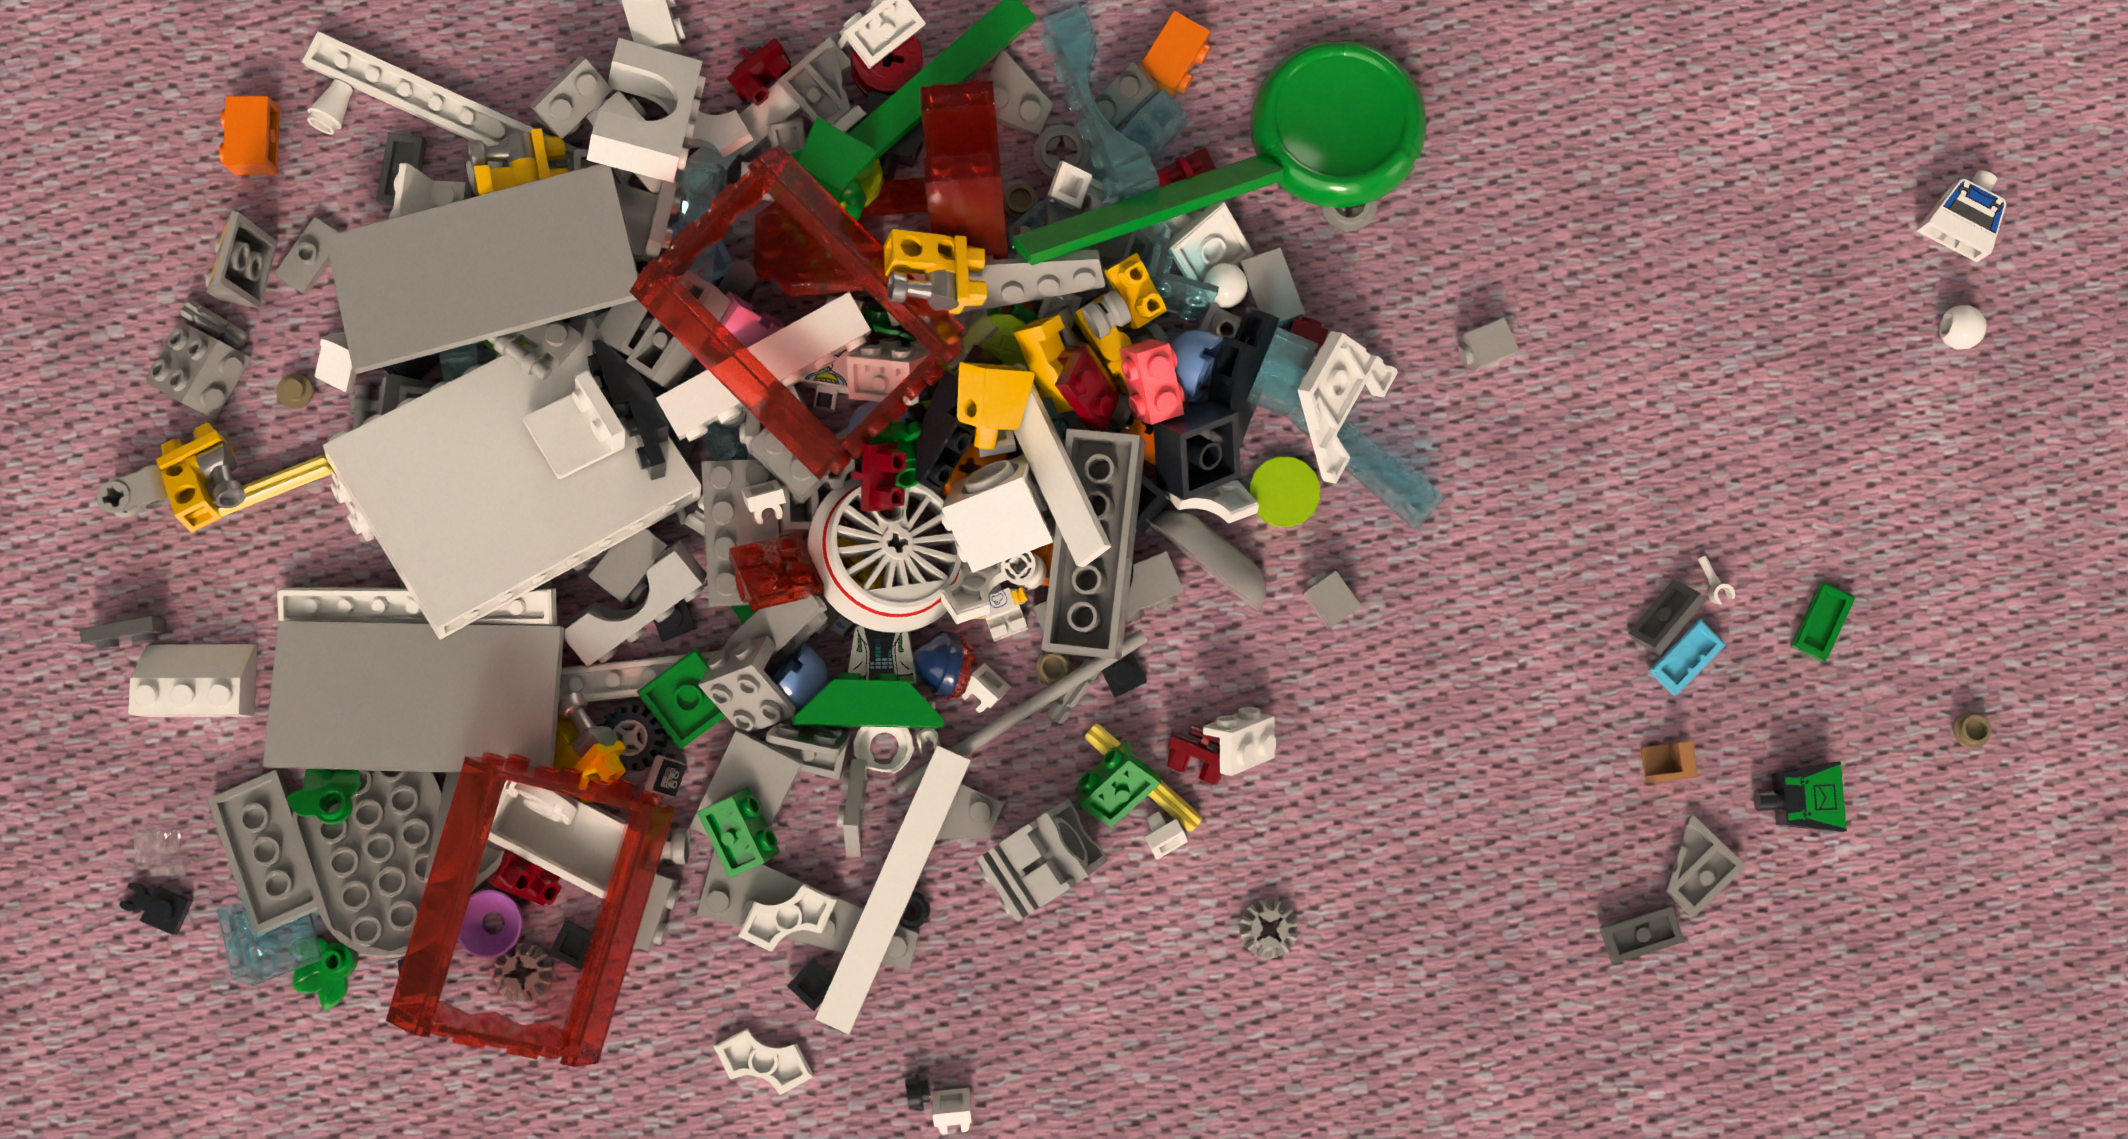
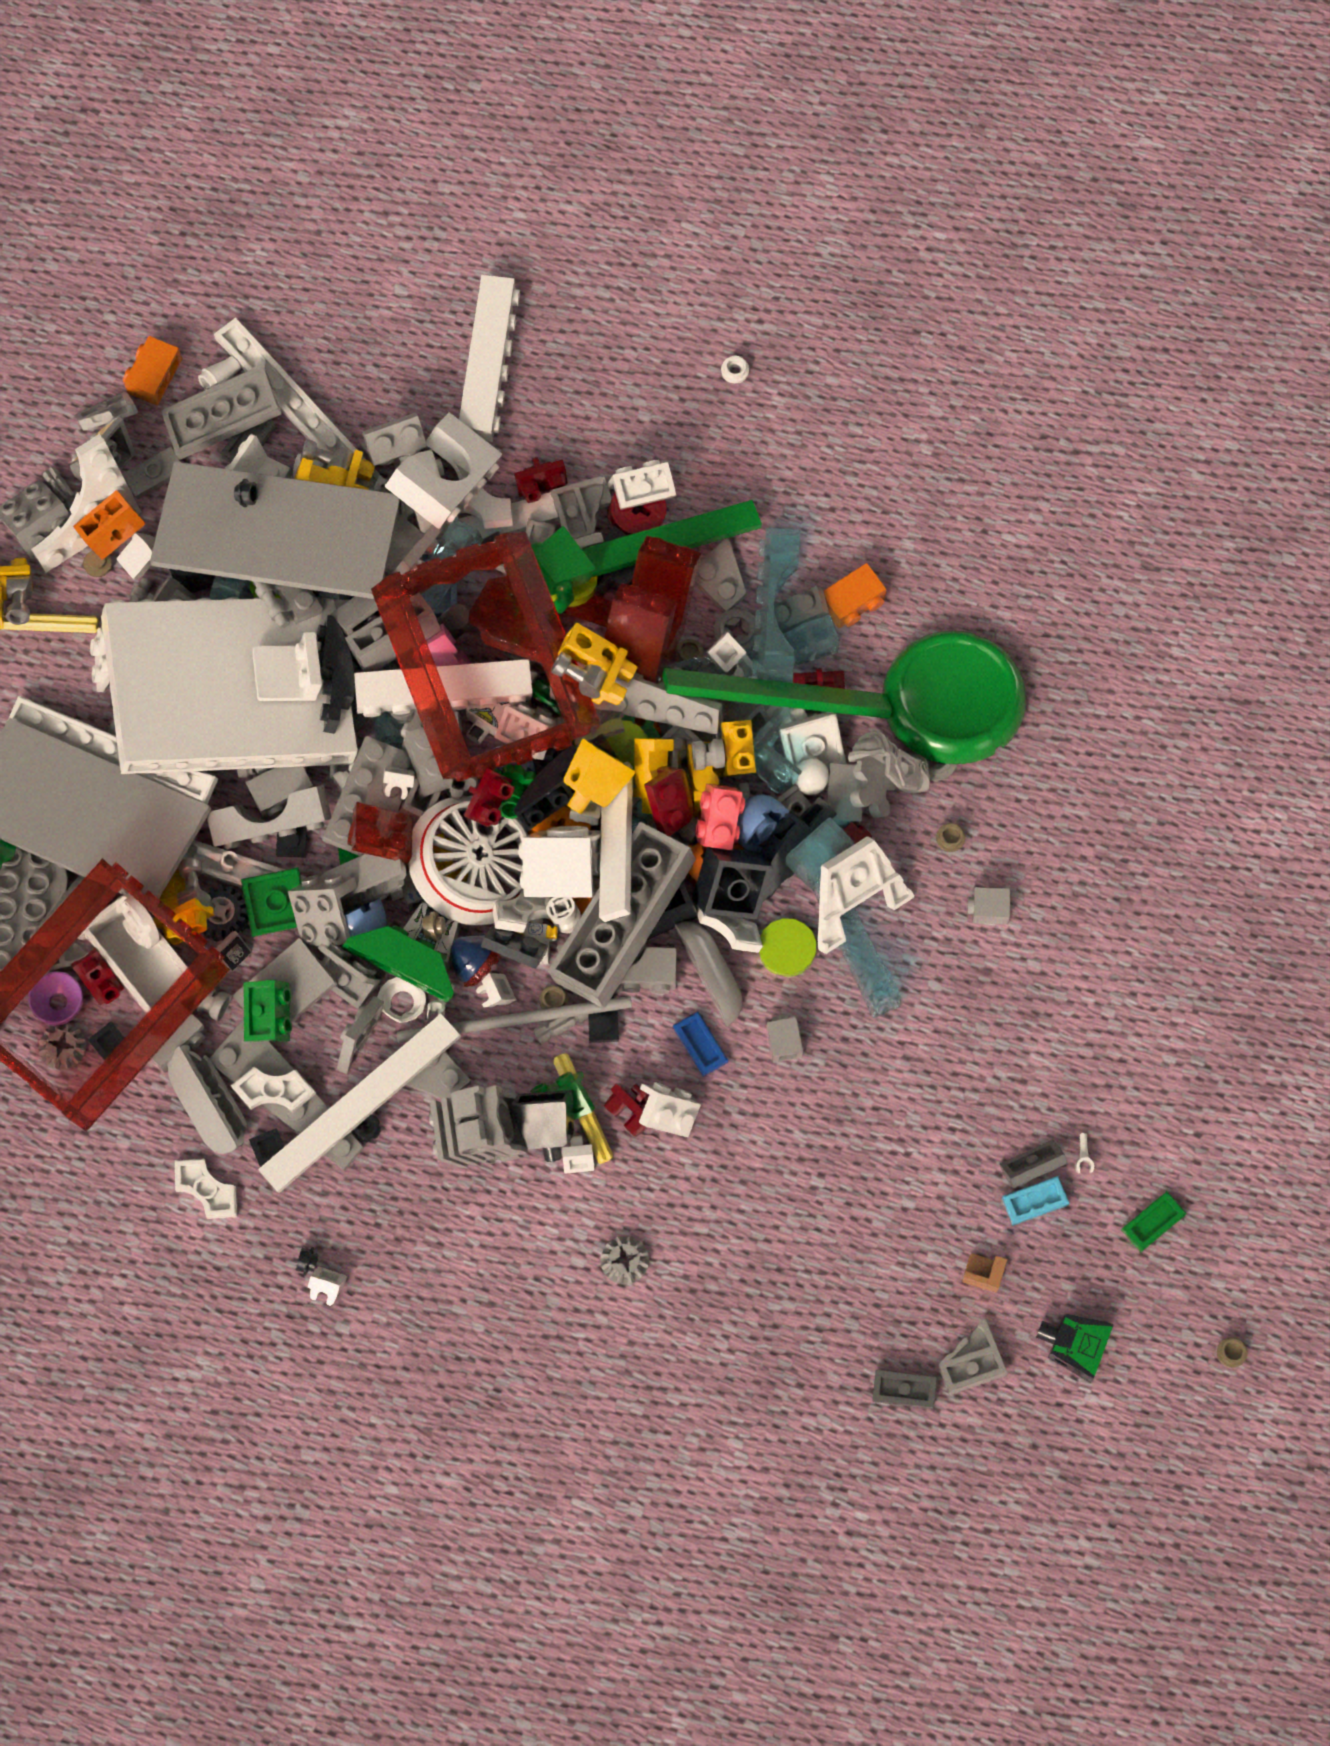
camera: 25 degrees right, 10 degrees down
(213, 215) = (104, 412): none -> light grey wing
(261, 330) = (99, 481): none -> white plate
(285, 343) = (109, 525): none -> orange brick
(353, 151) = (221, 412): none -> light grey plate
(427, 238) = (246, 493): none -> black plate
(597, 677) = (218, 857): none -> white hand
(719, 962) = (207, 1100): none -> light grey brick
(884, 650) = (434, 926): none -> dark tan plate
(988, 633) = (515, 946): none -> black plate
(1112, 816) = (545, 1121): none -> torso
(1239, 645) = (700, 1044): none -> blue tile
(1300, 239) = (881, 769): none -> light grey piece
(1407, 286) = (950, 837): none -> dark tan plate

